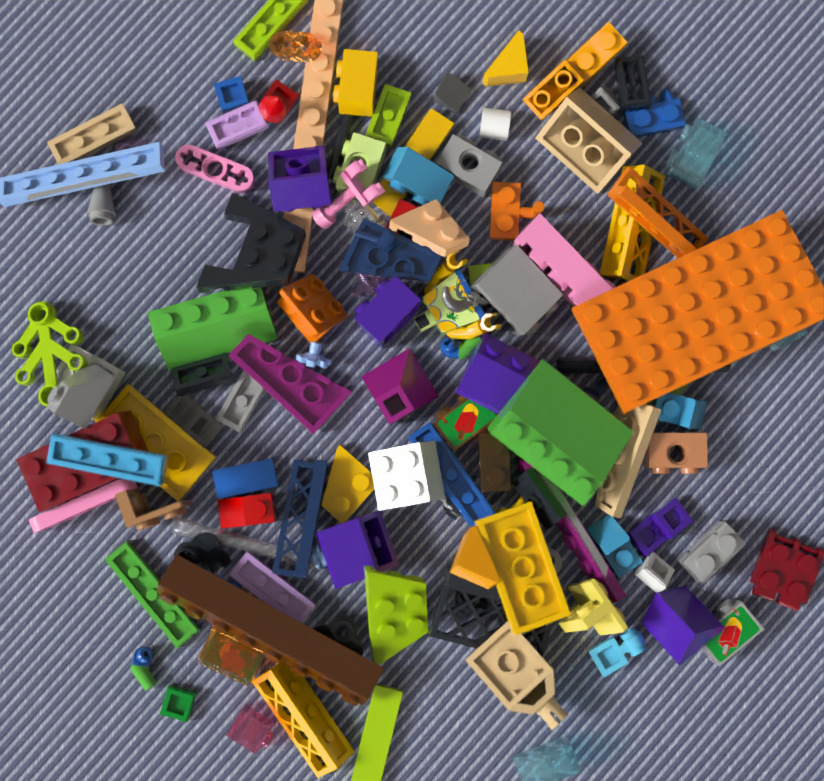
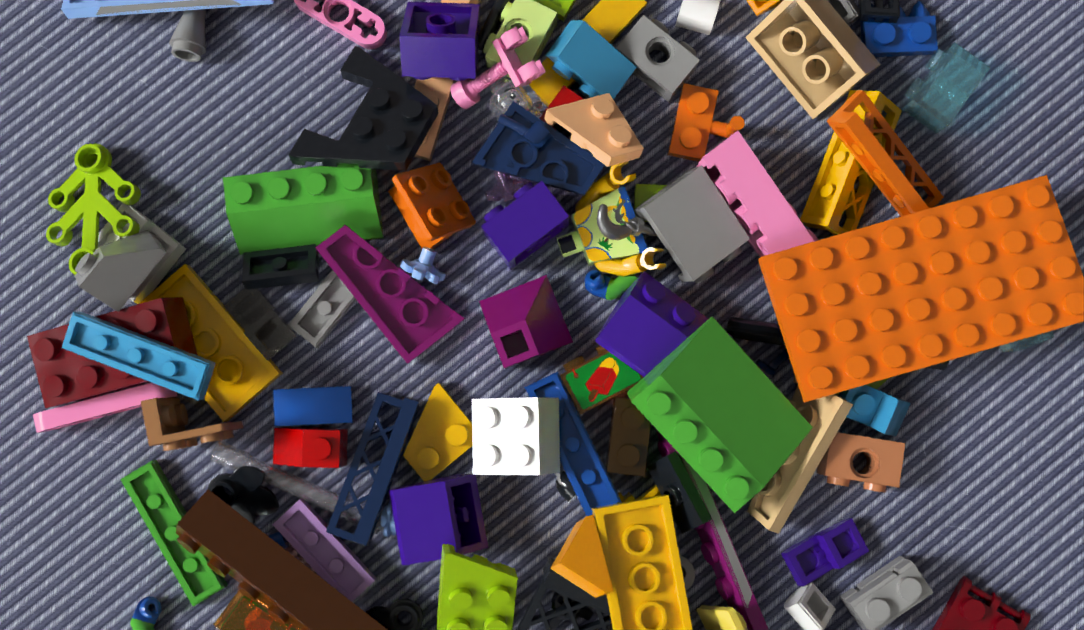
camera: 10 degrees right, 0 degrees up
(614, 545) = (764, 565): dark azure slope -> none

